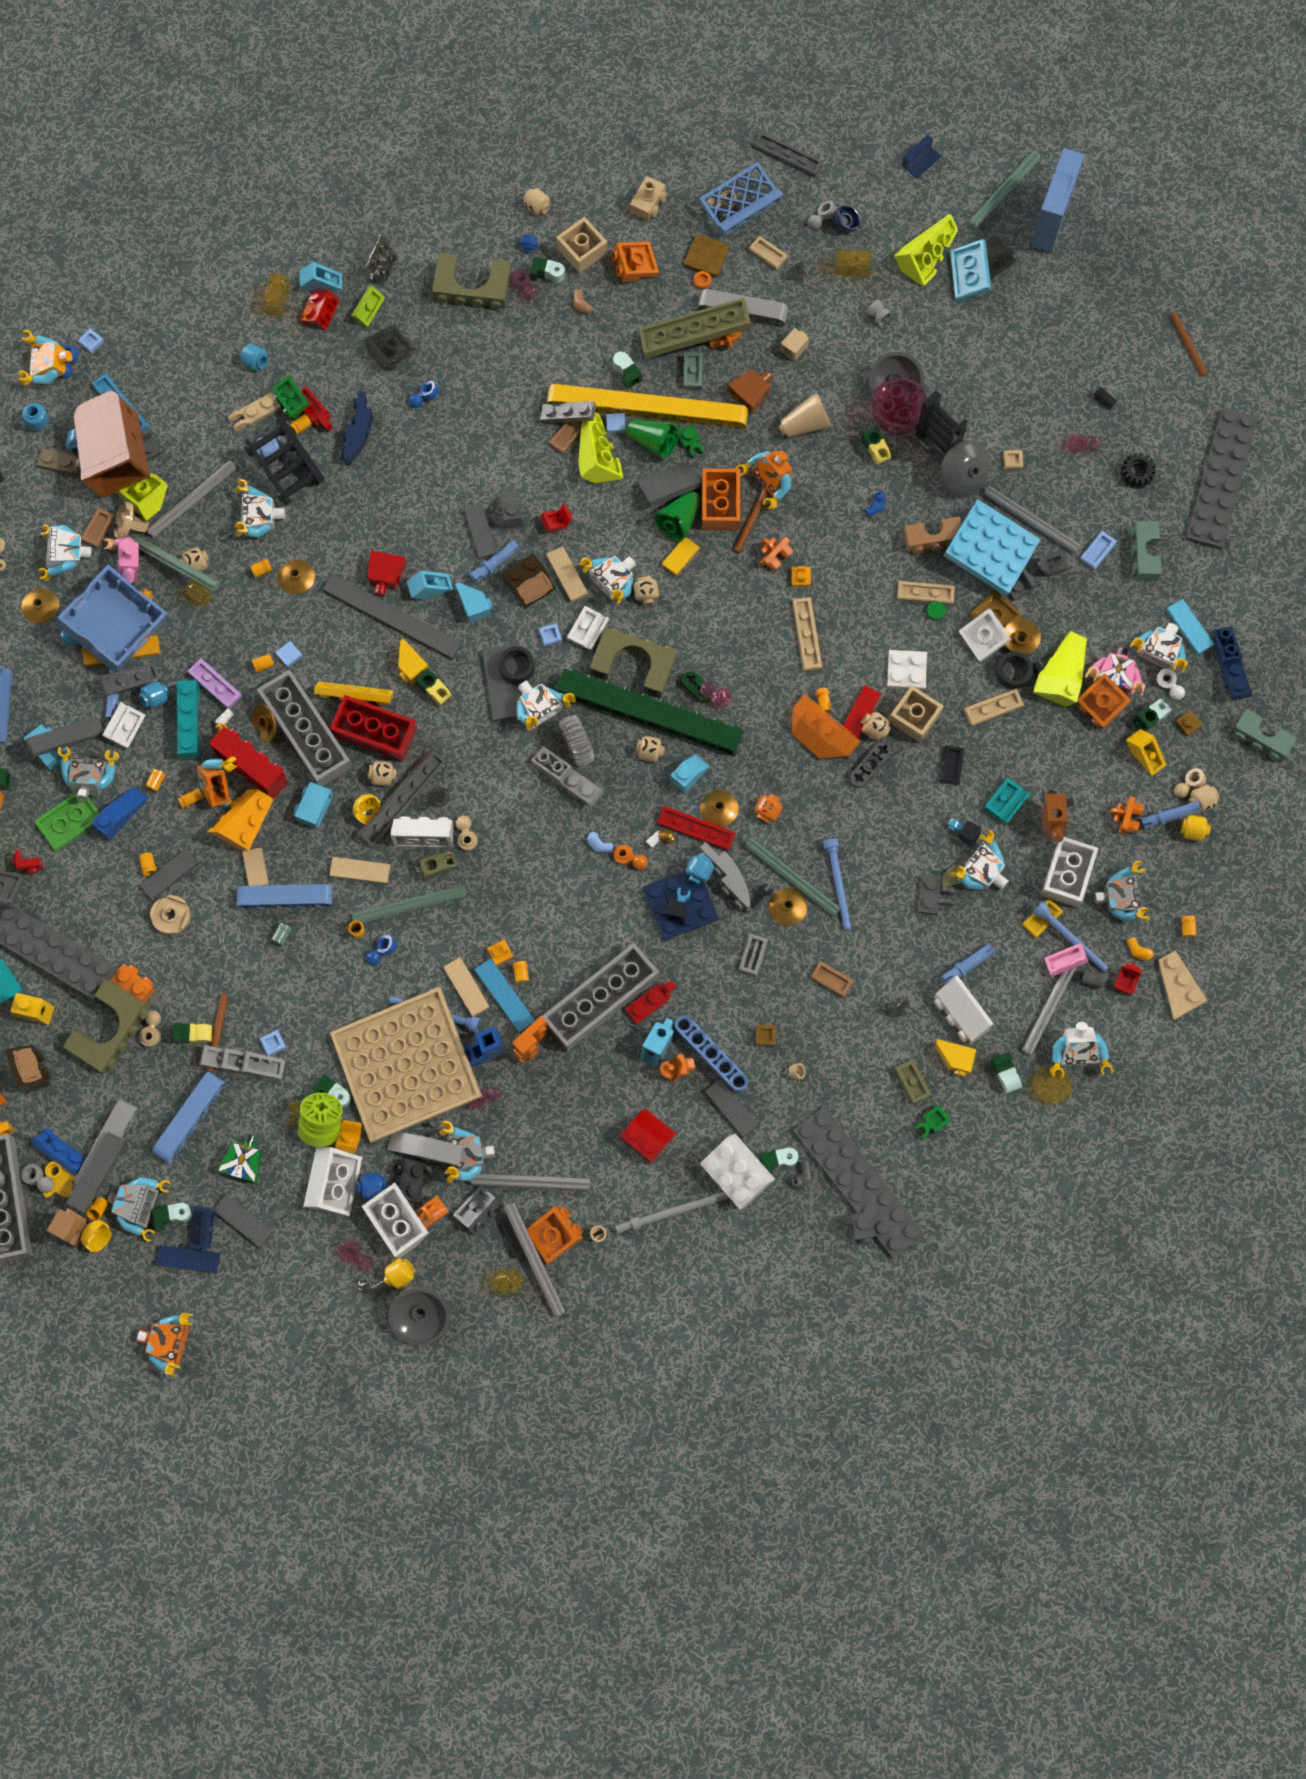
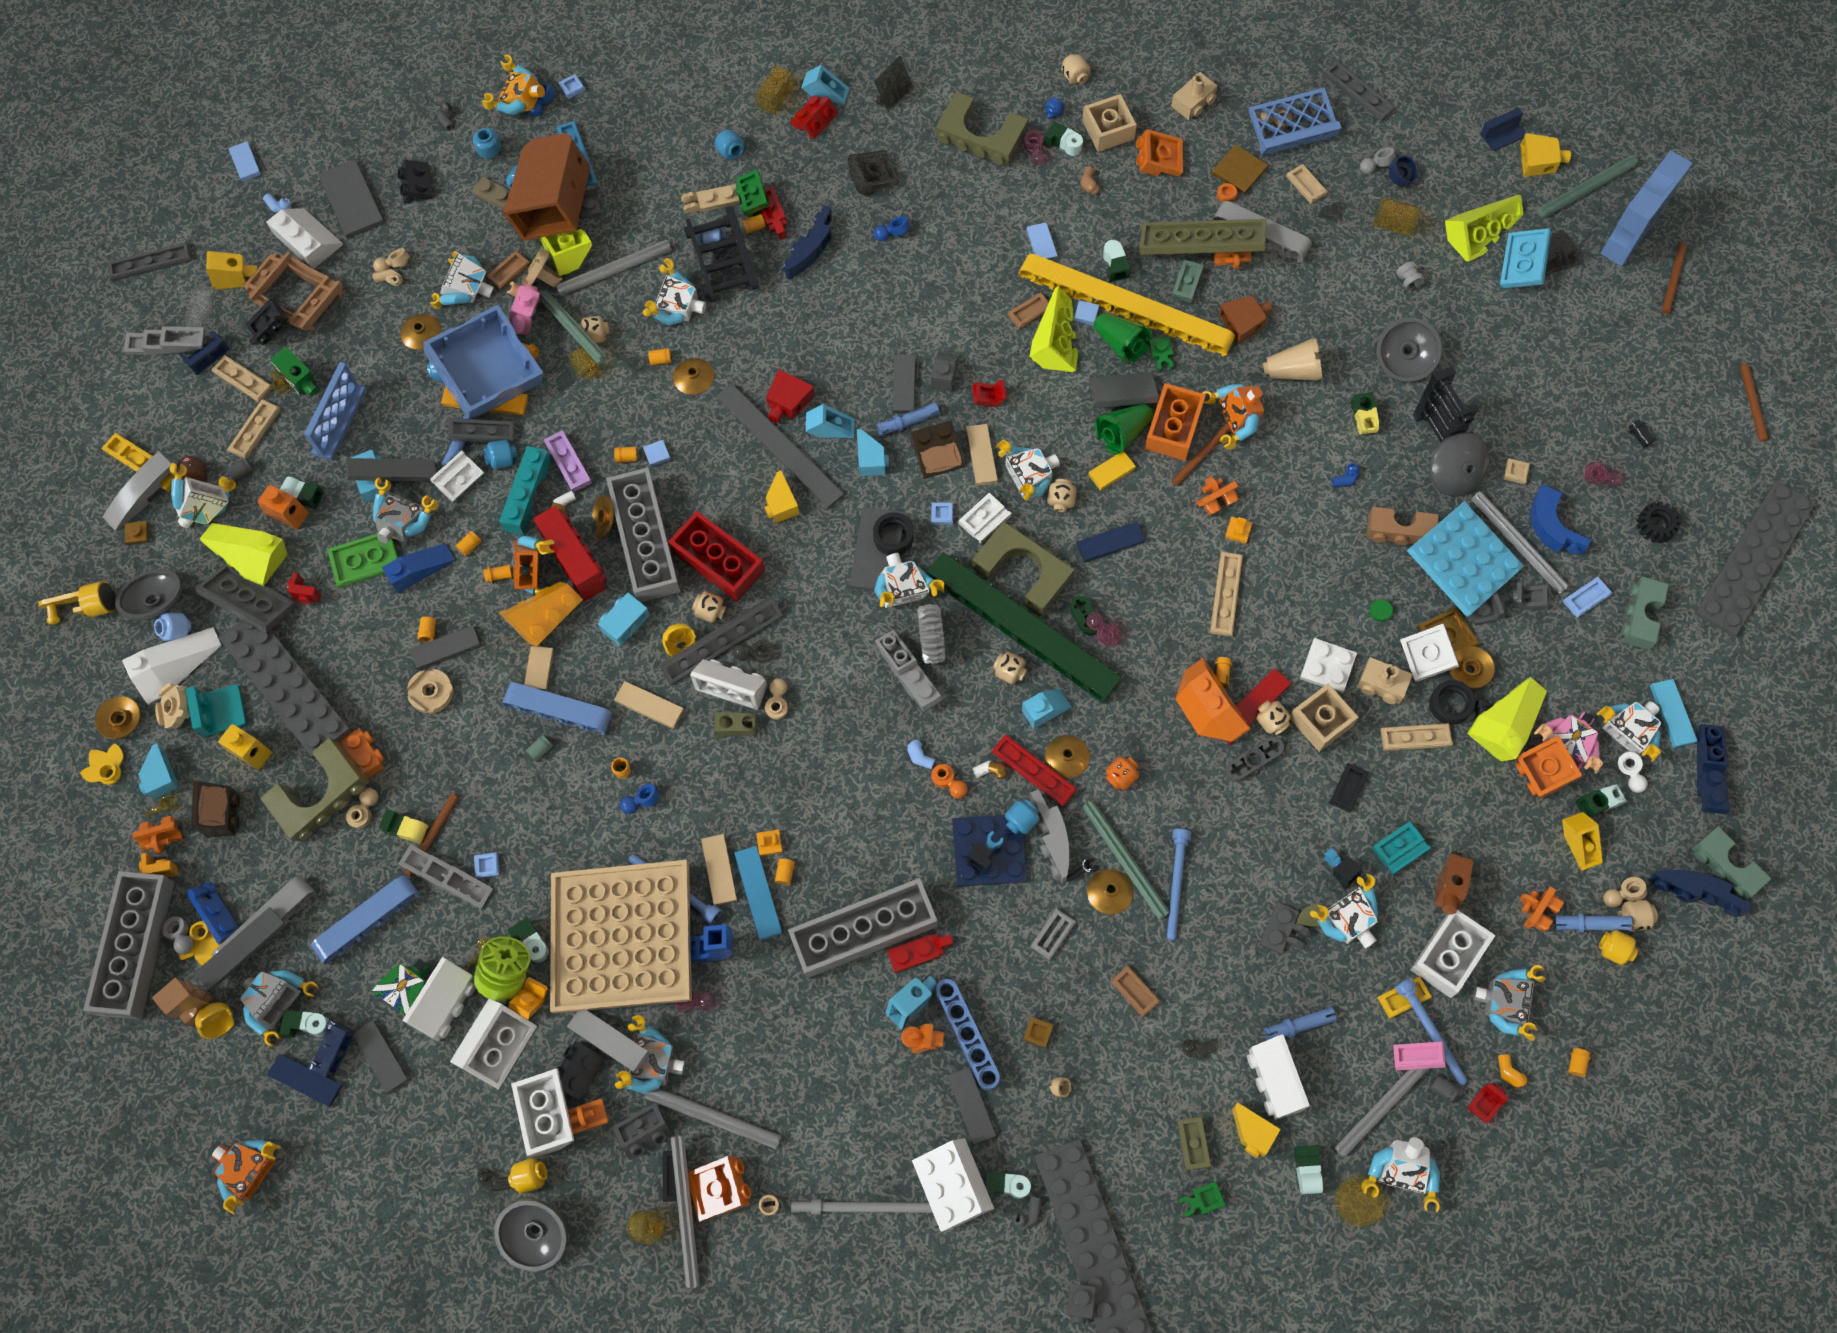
camera: 20 degrees right, 5 degrees down
(97, 1208) = (227, 990): light orange piece -> none
(278, 1160) = (440, 1000): none -> white slope
(364, 694) = (717, 516): yellow plate -> none
(364, 1262) = (495, 1148): clear pink plate -> none
(368, 306) = (864, 126): lime plate -> none
(370, 1185) = (533, 1062): blue head -> none
(410, 904) = (689, 758): sand green axle -> none
(433, 687) = (796, 531): leg -> none
(526, 1044) = (760, 955): orange plate -> none
(557, 369) = (1042, 241): none -> light blue tile
(568, 412) = (1038, 286): plate -> none
(647, 1136) = (864, 1106): red slope -> none
(698, 618) = (1110, 542): none -> dark blue tile
(794, 344) = (1307, 283): tan brick -> none
(898, 397) = (1402, 376): clear pink cylinder -> none
(925, 592) = (1374, 587): tan tile -> none
(955, 669) = (1384, 681): none -> tan brick
(958, 171) = (1542, 155): none -> yellow torso
(1052, 501) = (1549, 528): none -> blue arch
(1097, 251) = (1674, 278): none -> dark orange bar
(1180, 987) = (1549, 1133): tan wing -> none
(1188, 723) = (1642, 822): pearl gold plate -> none
(1239, 761) = (1693, 885): none -> dark blue slope

